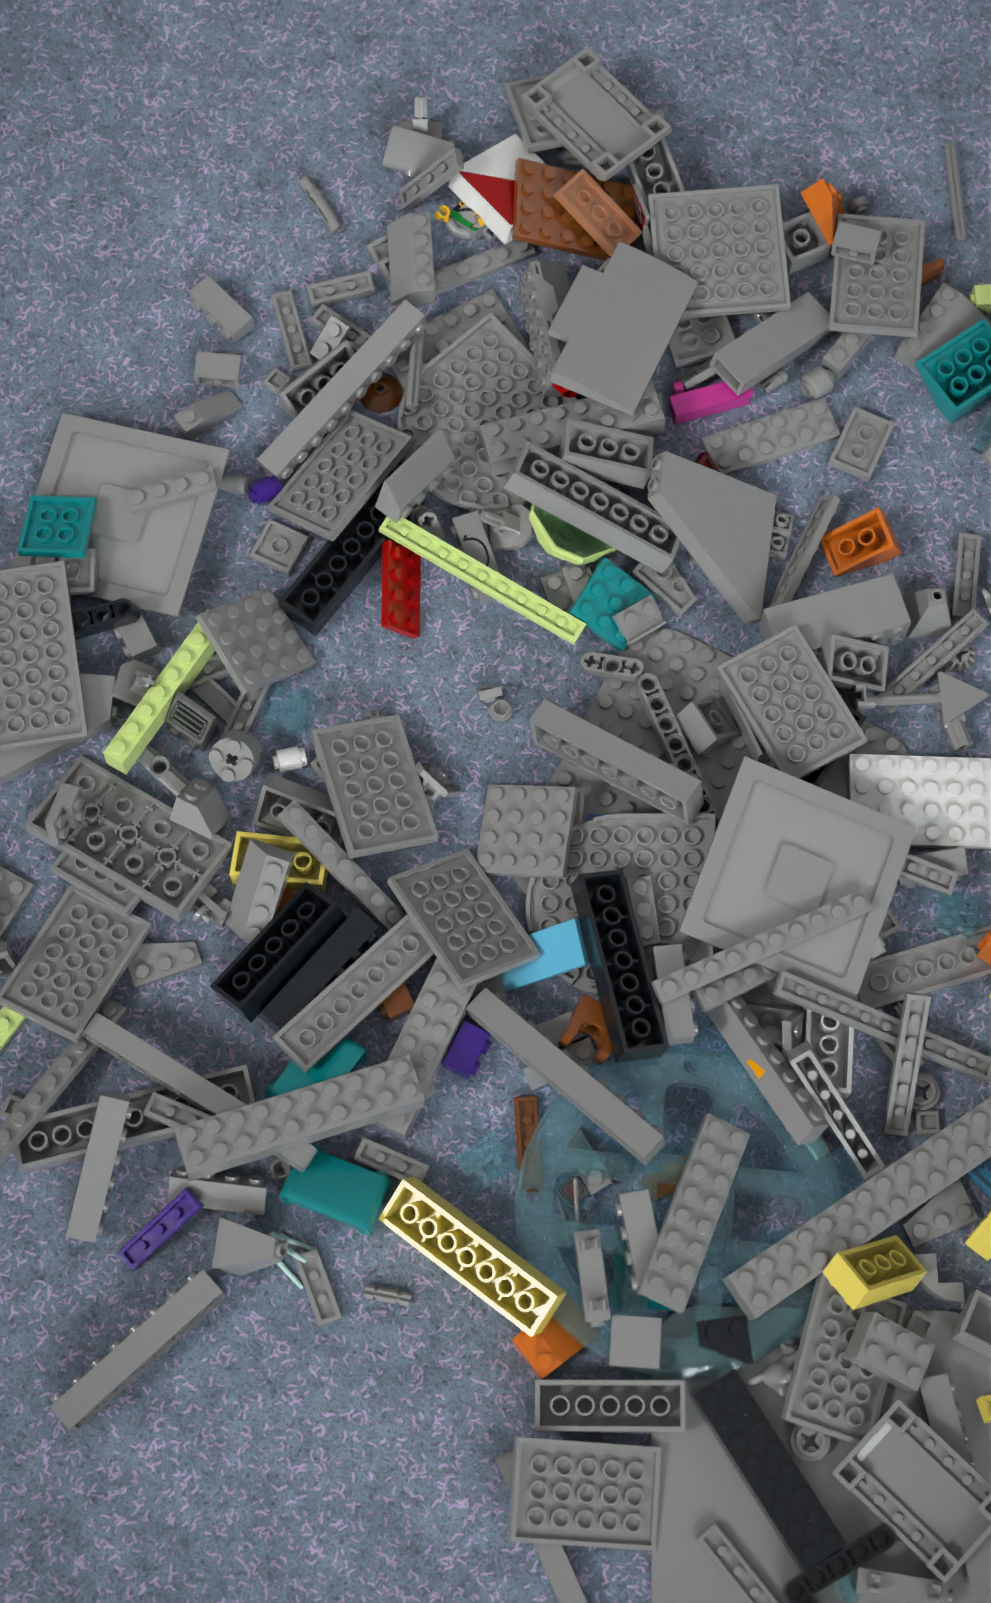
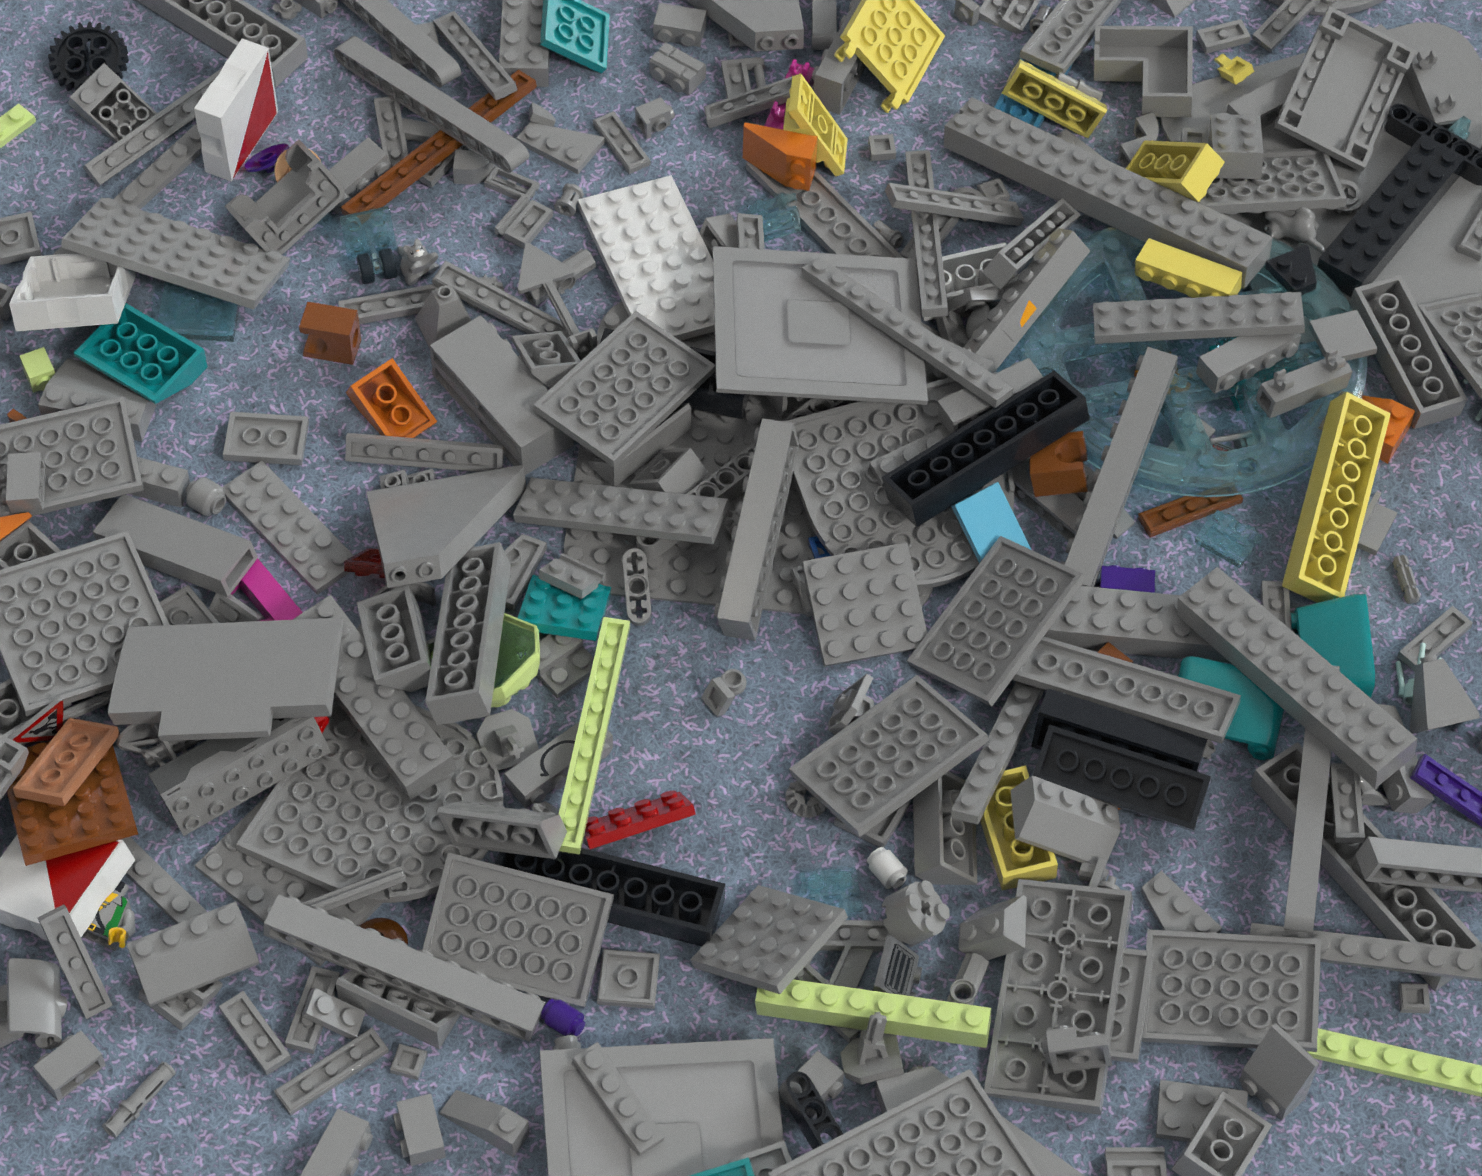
camera: 110 degrees left, 15 degrees down
(364, 167) = (69, 1065): none -> light grey brick
(448, 1293) = (1375, 525): none -> light grey panel
(681, 673) = (622, 510): none -> light grey plate
(751, 1232) = (1185, 271): none -> light yellow brick
(944, 514) = (332, 333): none -> dark orange piece

